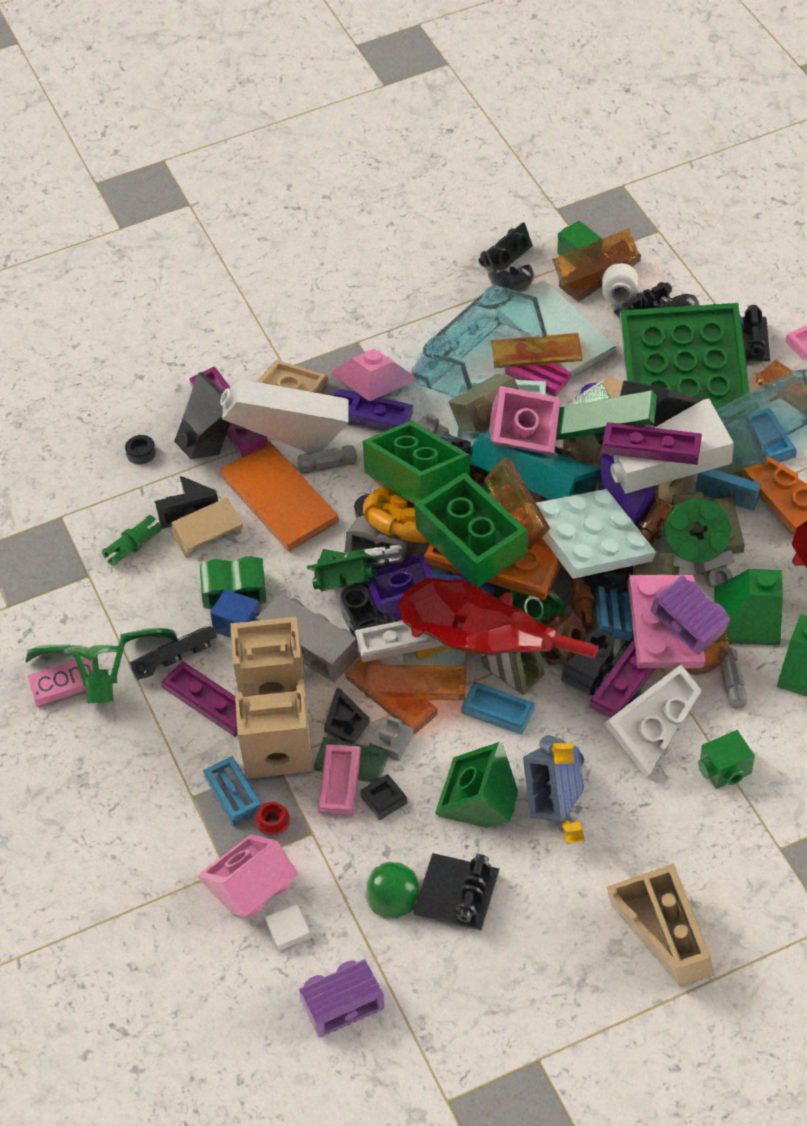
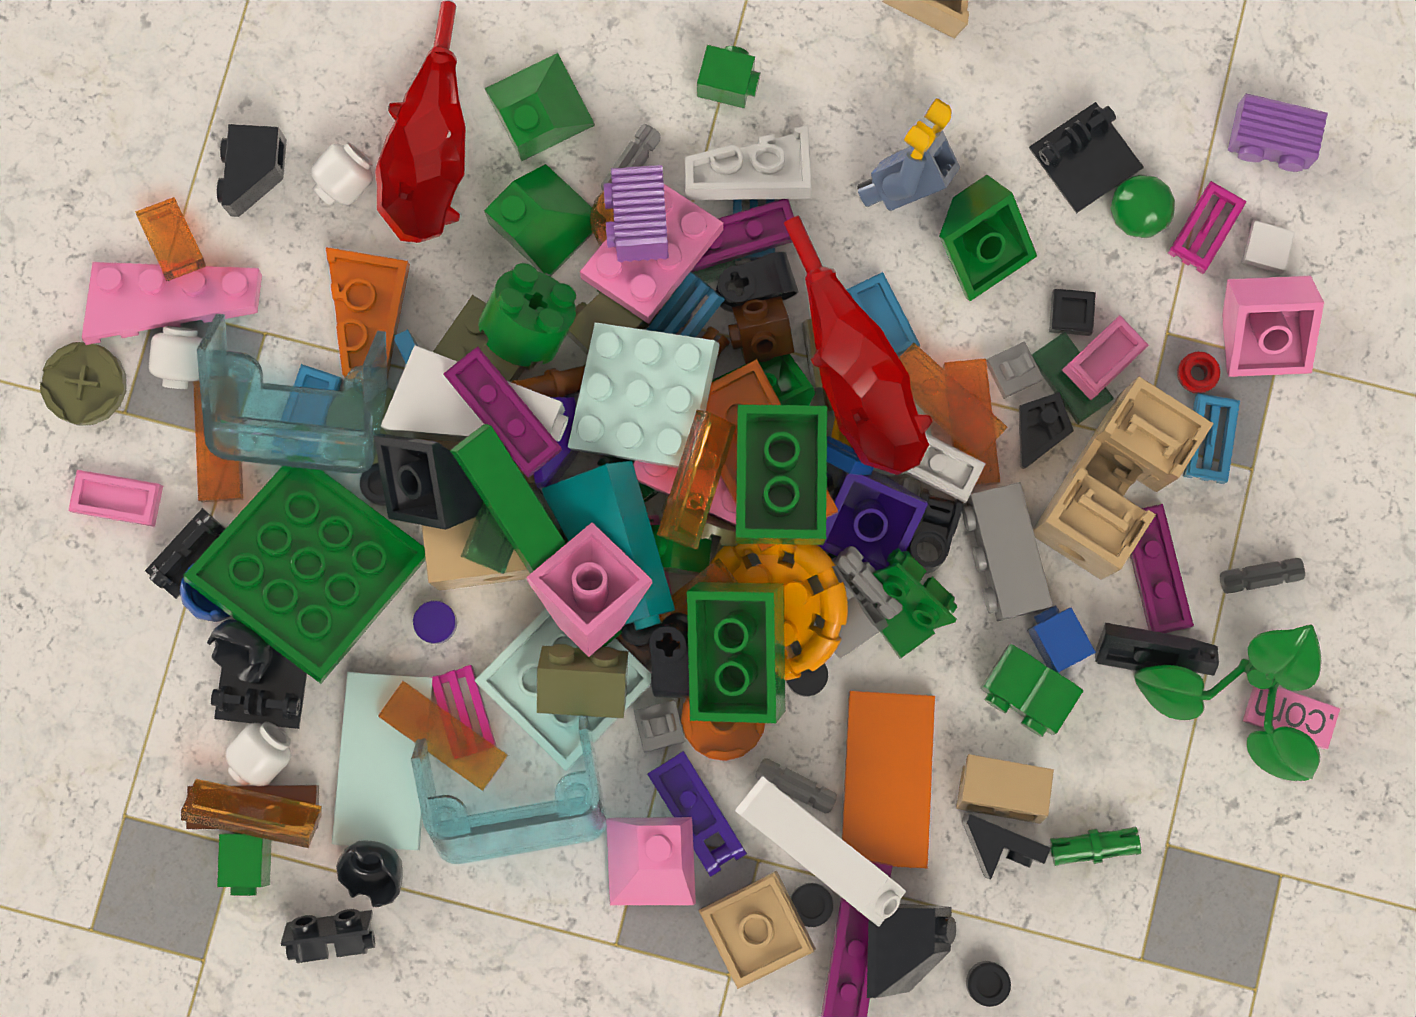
camera: 145 degrees left, 30 degrees up
(139, 738) = (1262, 575): none -> dark grey axle
(343, 935) = (1189, 256): none -> dark pink tile

